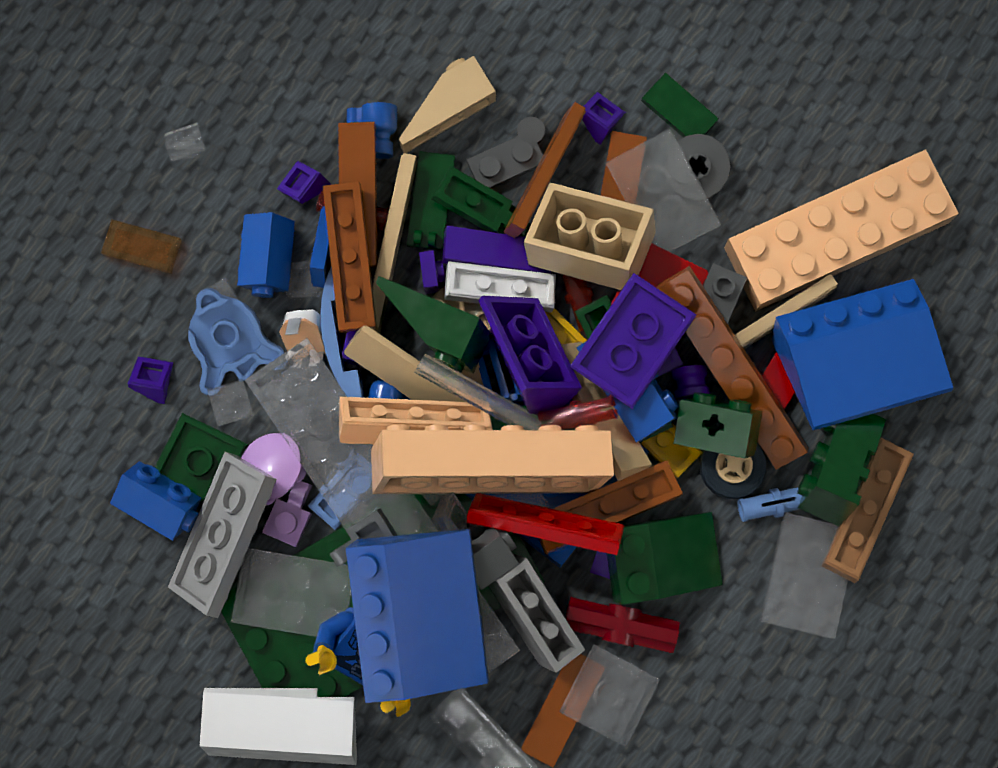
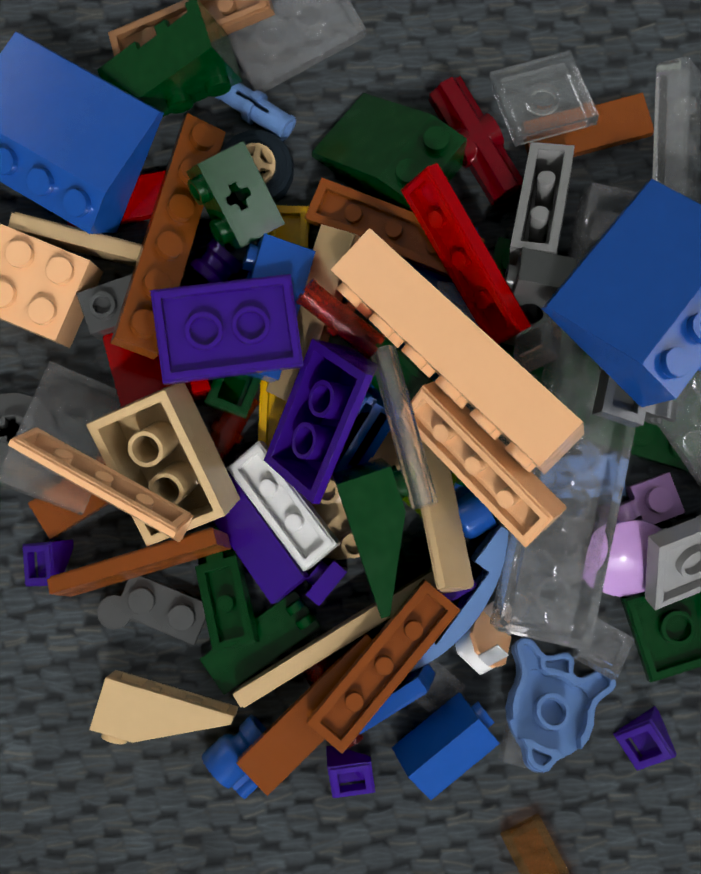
camera: 135 degrees left, 5 degrees up
(608, 188) = (103, 482): none -> light nougat slope

